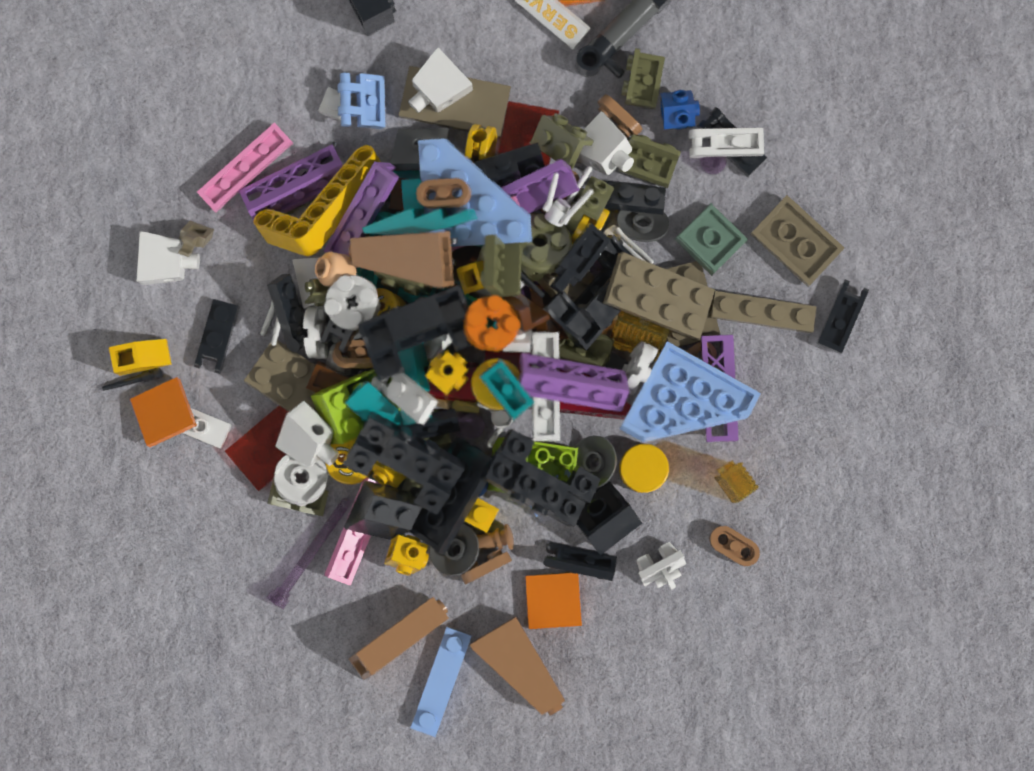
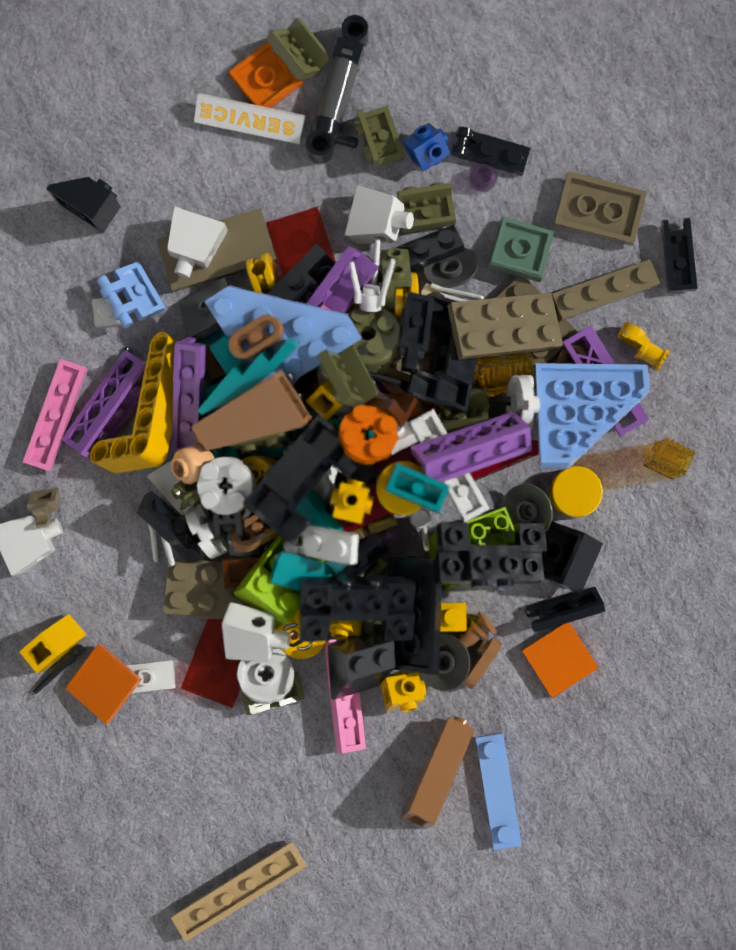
camera: 30 degrees left, 0 degrees up
(181, 644) = (238, 891): none -> tan plate
(217, 334) = (114, 583): black hinge -> none
(281, 594) = (306, 792): clear purple piece -> none
(518, 663) = (558, 734): medium nougat slope -> none
(560, 139) = (334, 231): olive bracket -> none
(625, 121) = (375, 181): medium nougat plate -> none
(663, 571) = (634, 583): white hips -> none
(727, 142) = (488, 152): white plate -> none
(734, 545) = (696, 517): medium nougat plate -> none
(770, 382) = (645, 349): none -> yellow connector

